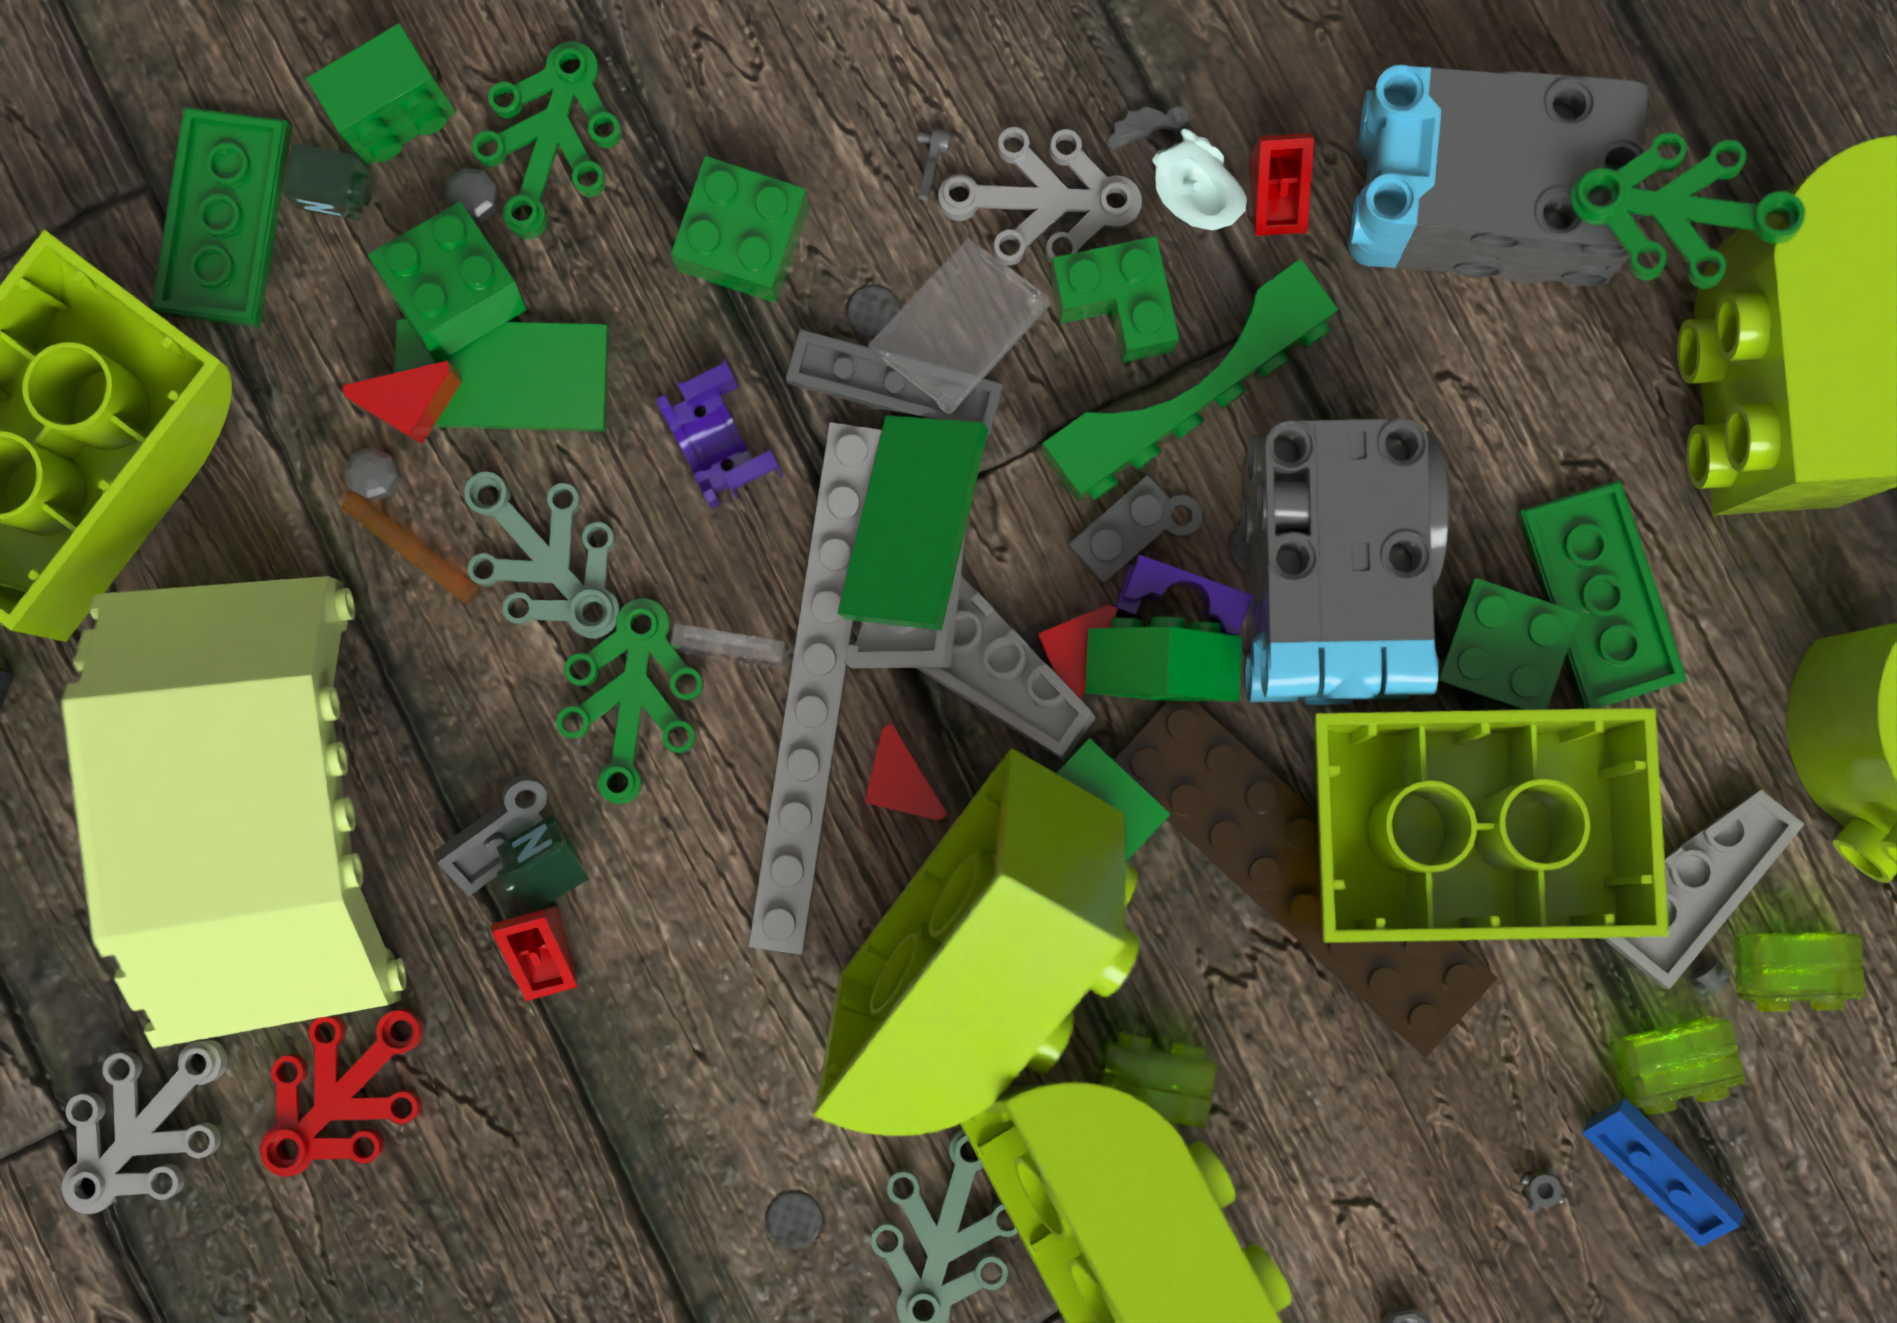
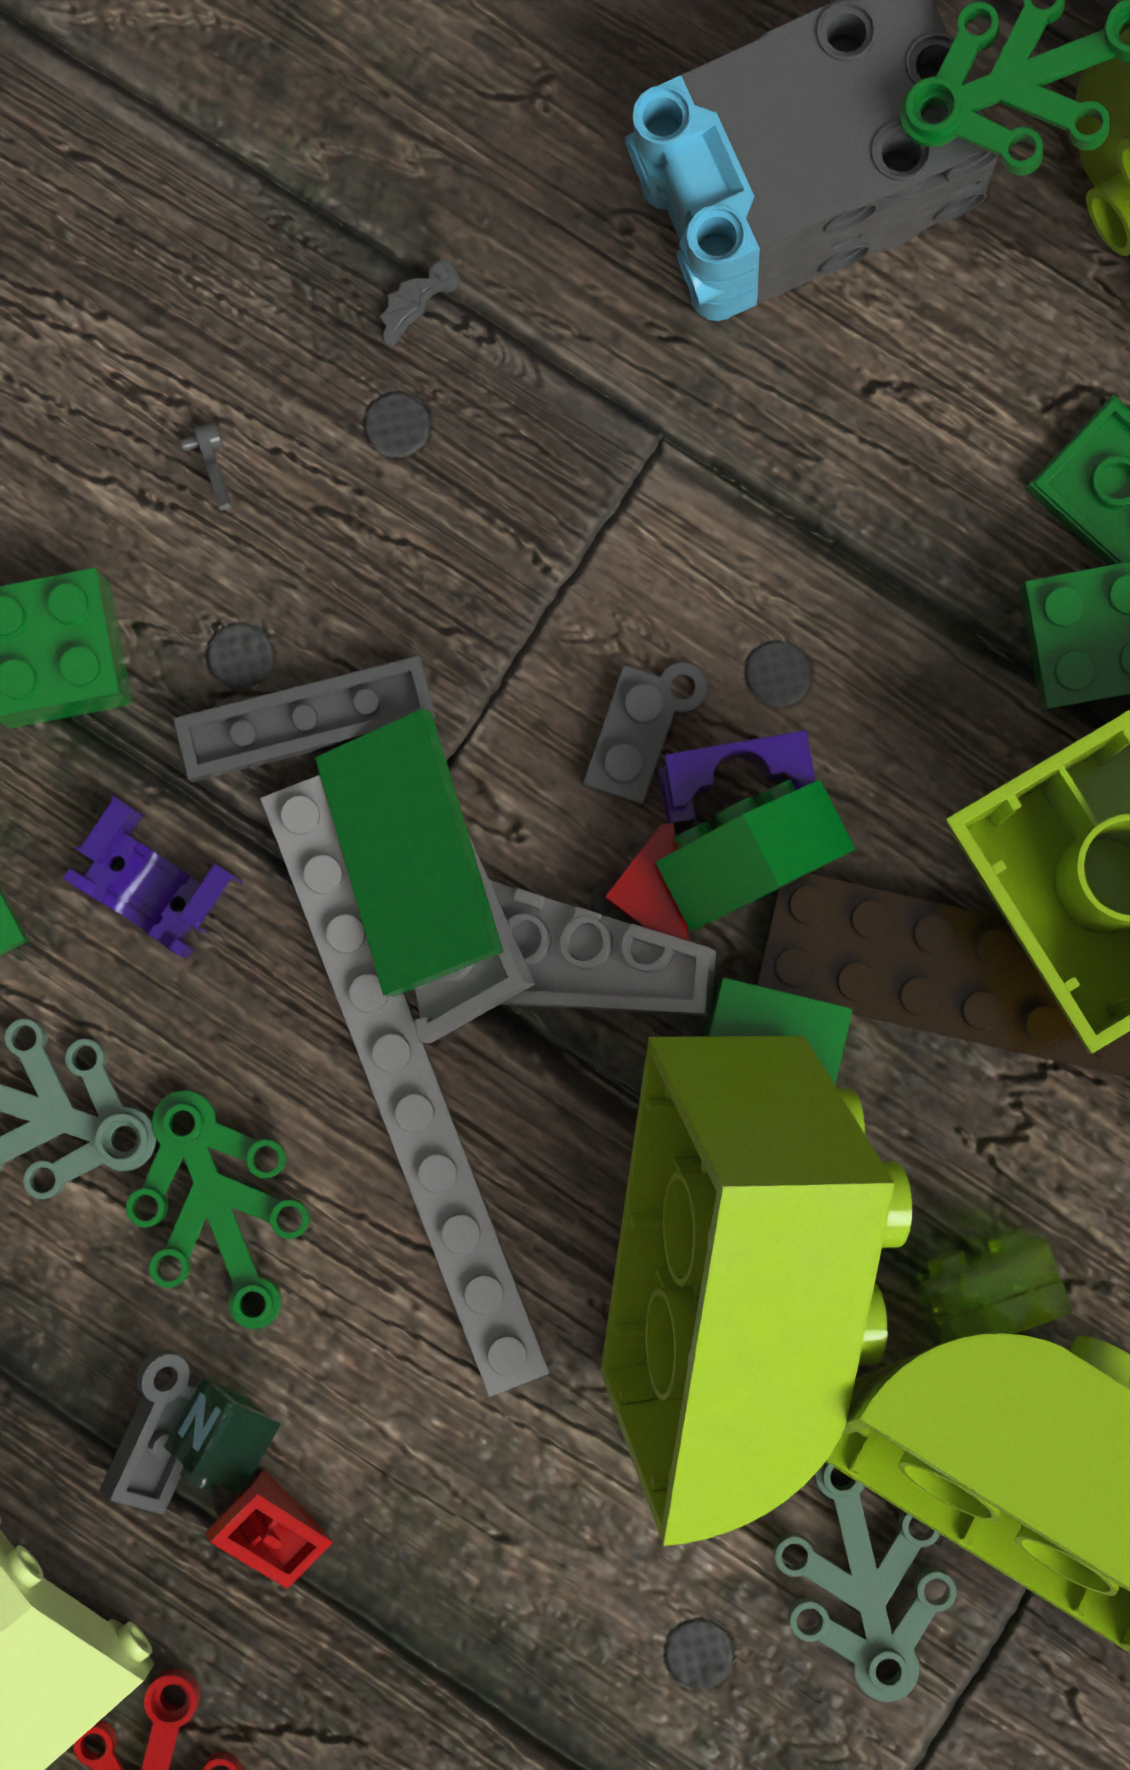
camera: 30 degrees left, 0 degrees up
(730, 647) = (290, 1094): clear tile -> none
(899, 782) = (548, 1133): red slope -> none
(960, 325) = (339, 619): clear piece -> none
(1048, 197) = (355, 434): light grey plant -> none
(1101, 445) = (557, 662): green arch -> none
(1124, 282) = (486, 478): green brick -> none
(1197, 184) = (502, 333): light aqua hat -> none
(1281, 183) = (589, 282): red slope -> none
(1342, 560) = (879, 640): dark grey piece -> none

